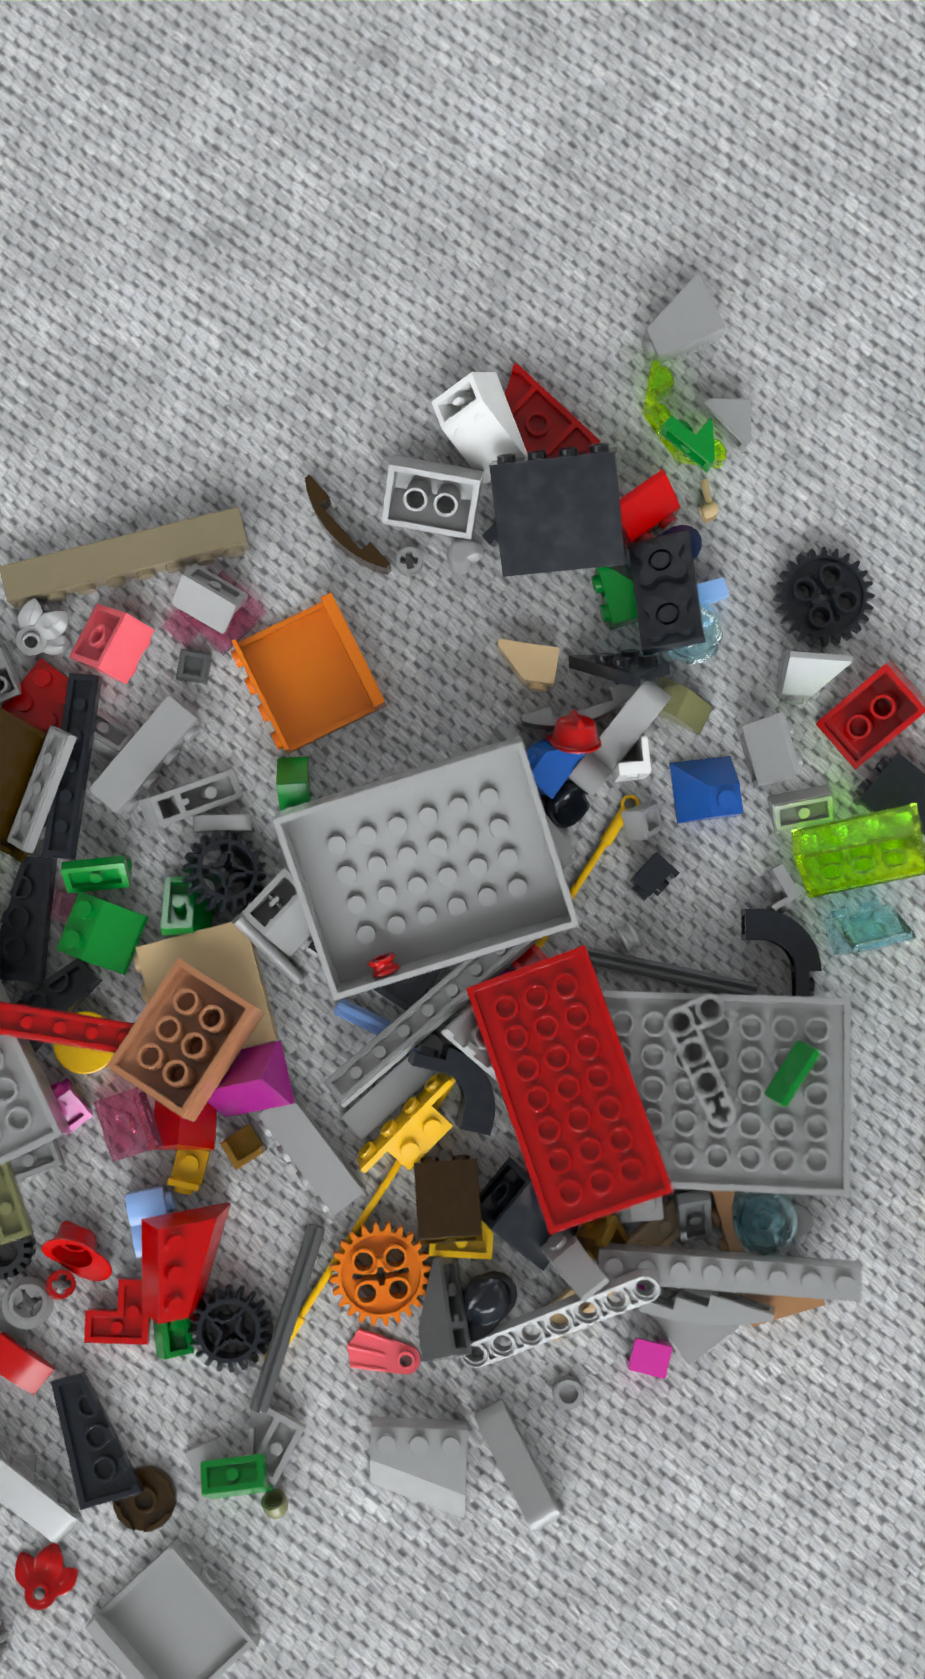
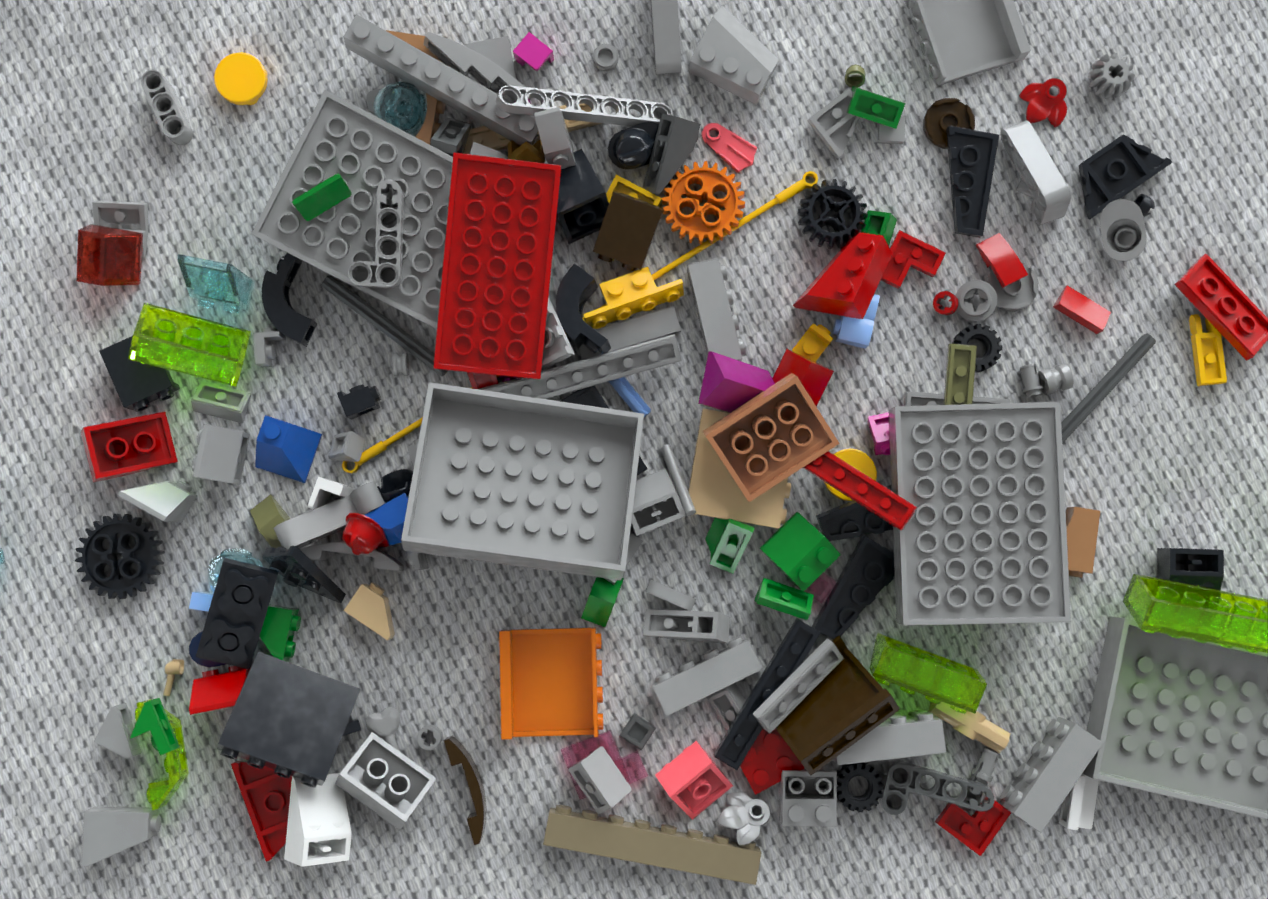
camera: 155 degrees left, 0 degrees up
(76, 1251) = (922, 321): red piece -> none
(128, 1124) = (843, 397): clear pink tile -> none
(226, 860) = (697, 538): black gear -> none
(243, 1146) = (763, 341): pearl gold panel -> none
(287, 1319) = (787, 201): dark grey axle -> none
(383, 965) = (594, 424): red bush -> none

